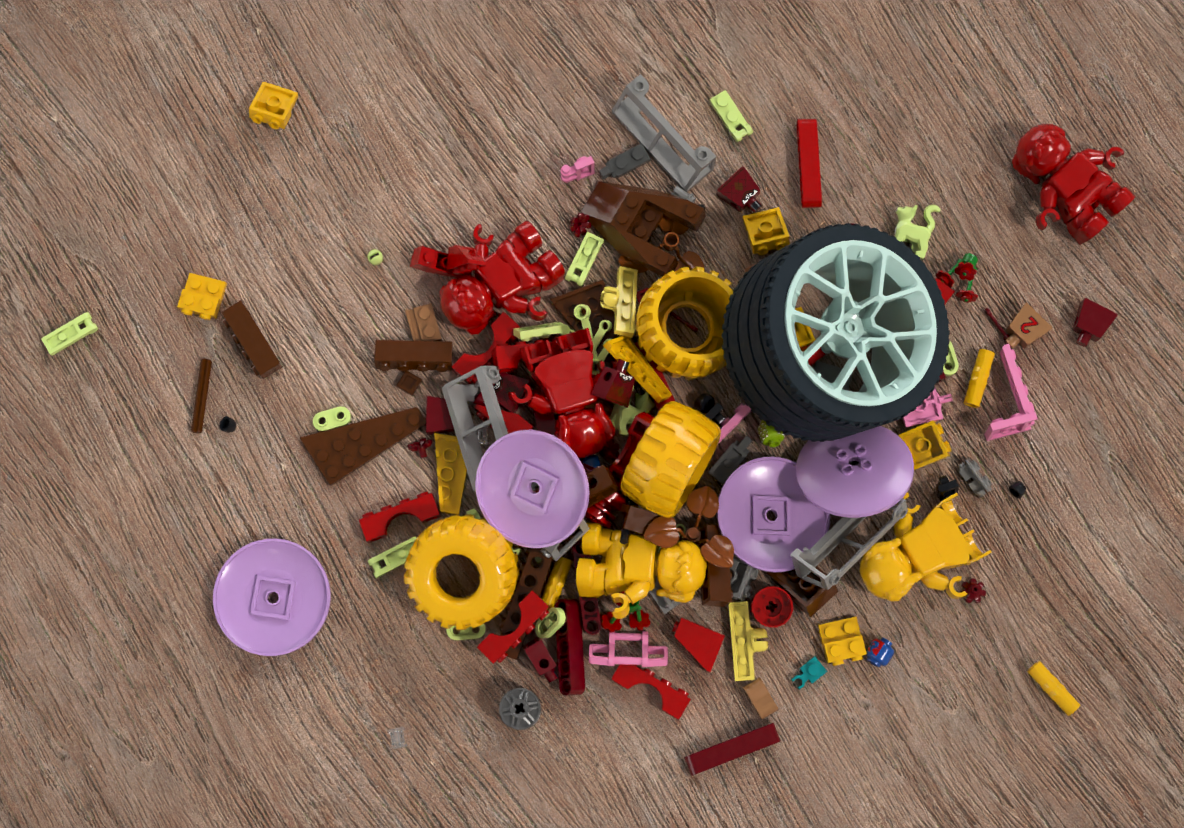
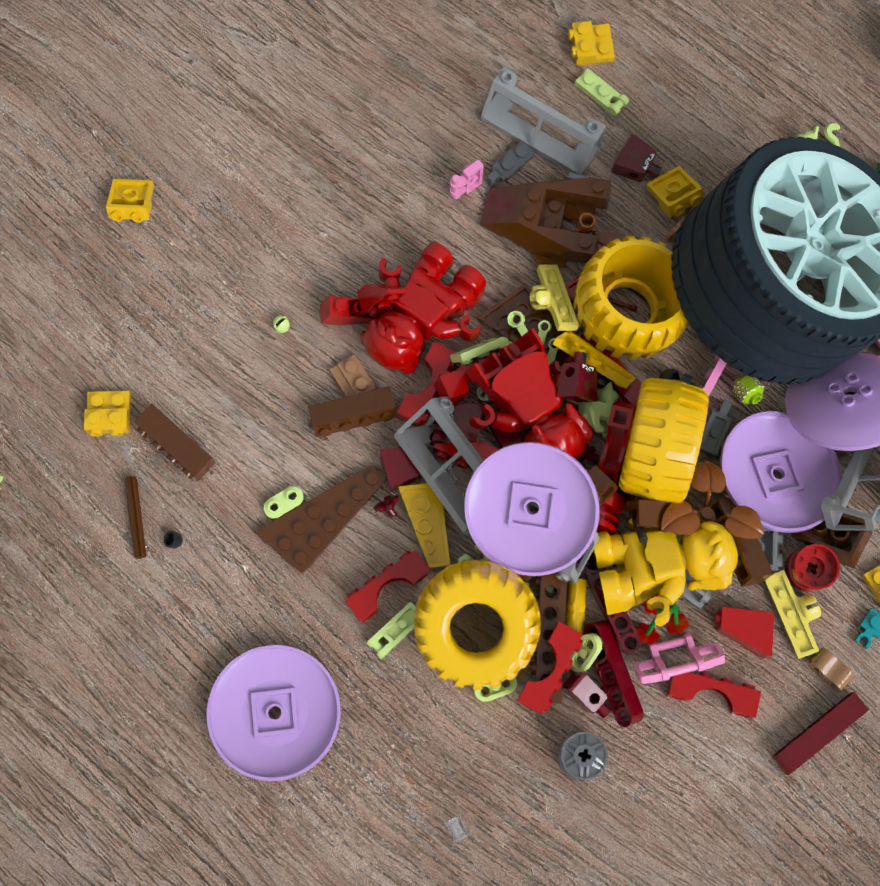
camera: 20 degrees left, 5 degrees down
(409, 383) = (355, 443): reddish brown tile -> none
(579, 224) = (483, 234): dark red plant -> none
(584, 258) = (499, 267): yellowish green plate -> none
(736, 66) = (591, 43): none -> yellow plate
(809, 163) = (695, 116): red beam -> none

